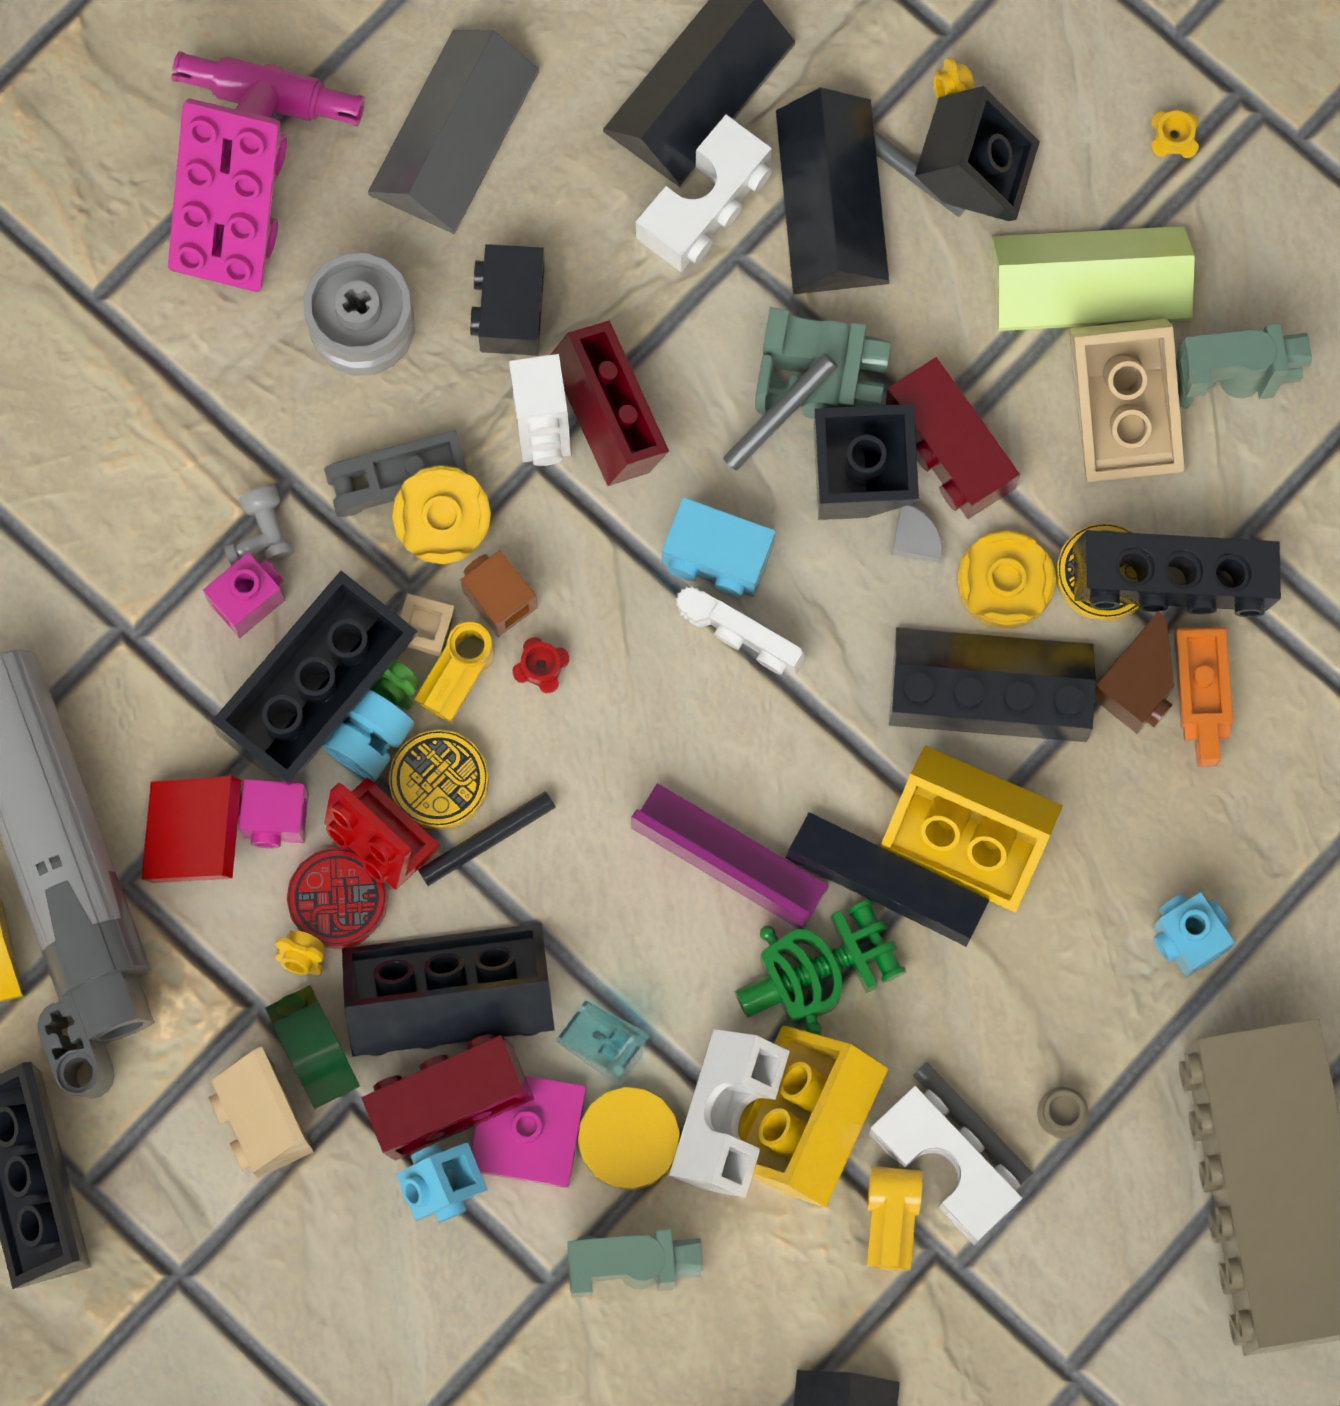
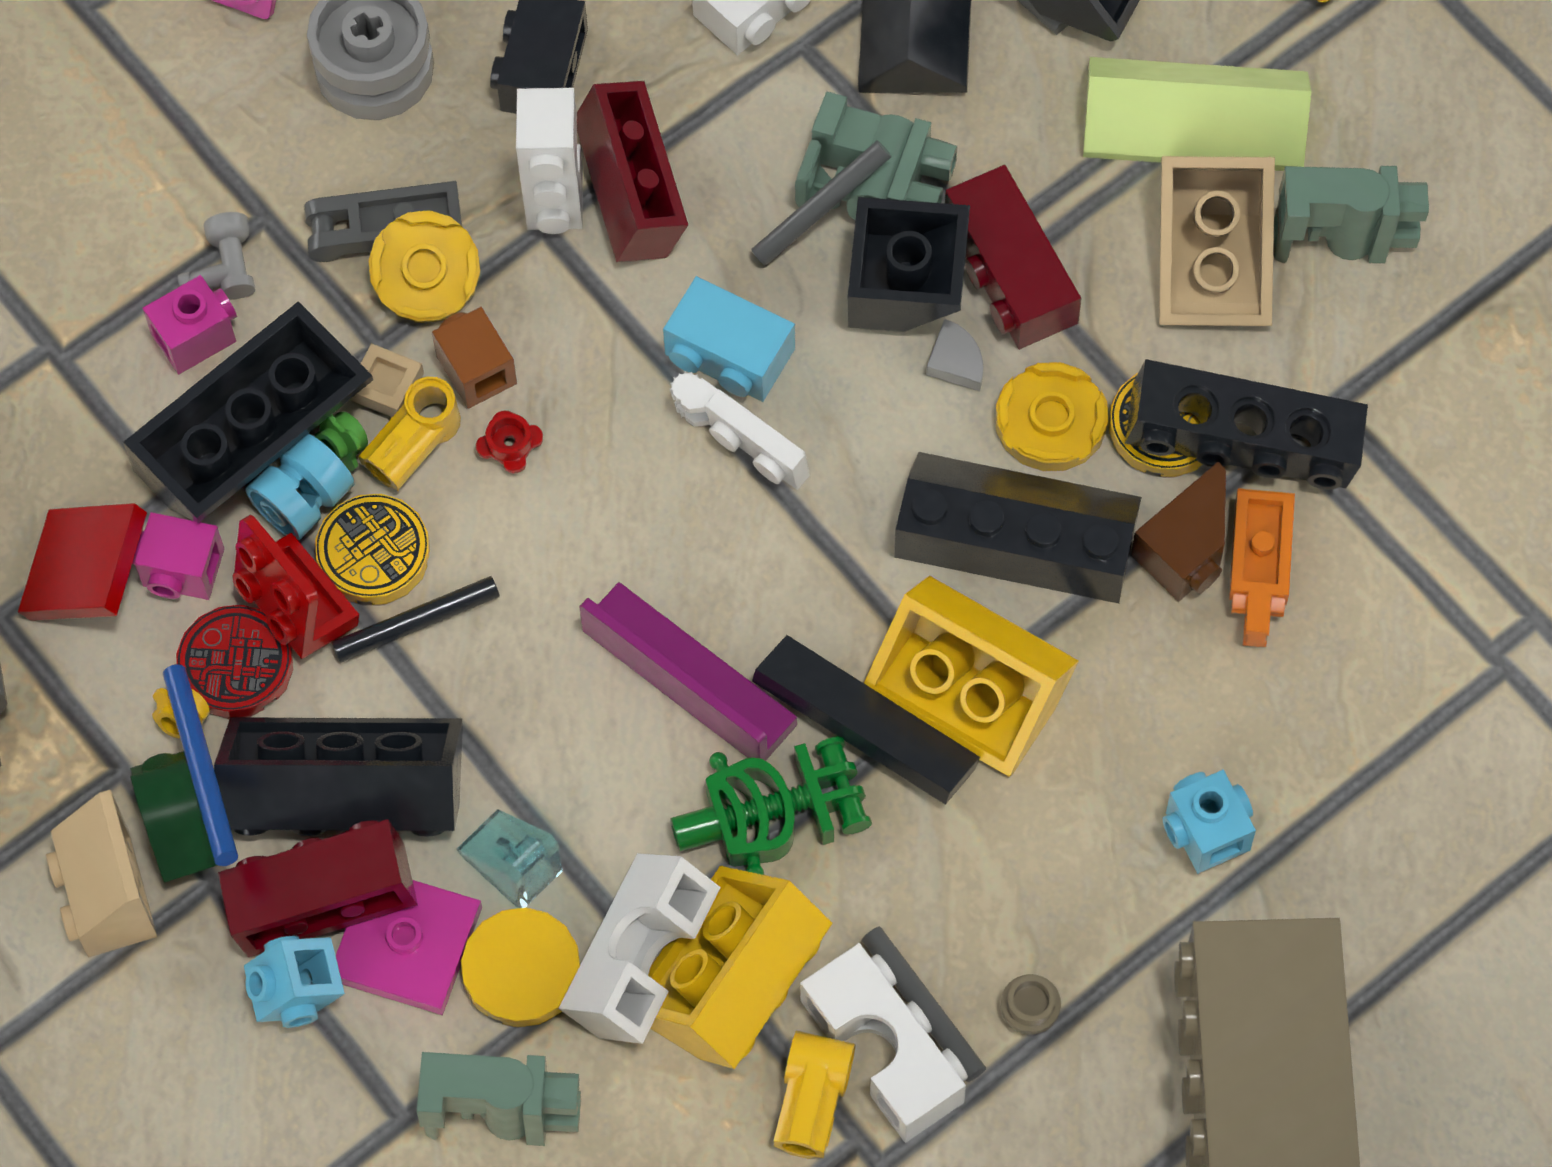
camera: 10 degrees right, 10 degrees down
(332, 1008) = (200, 765): none -> blue bar

